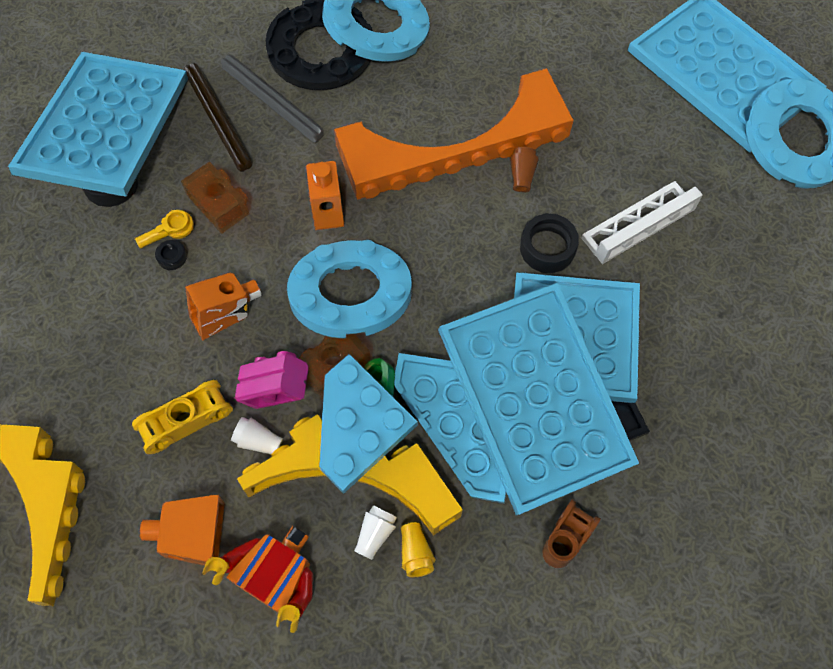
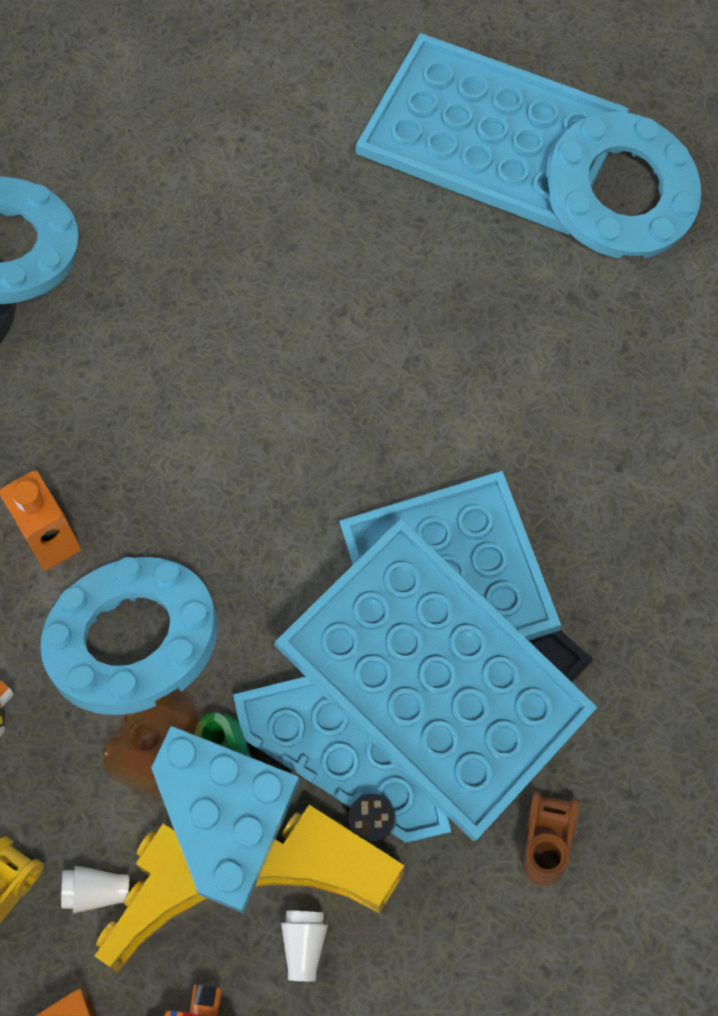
camera: 20 degrees left, 0 degrees up
(272, 381) = (82, 805): dark pink brick -> none
(383, 164) = (96, 445): orange arch -> none
(416, 553) = (367, 945): yellow cone -> none
(455, 470) = (372, 817): none -> black tile
(523, 168) = (287, 371): dark orange cone -> none
(558, 225) = (364, 433): black tyre -> none
(642, 226) = (475, 390): white fence -> none

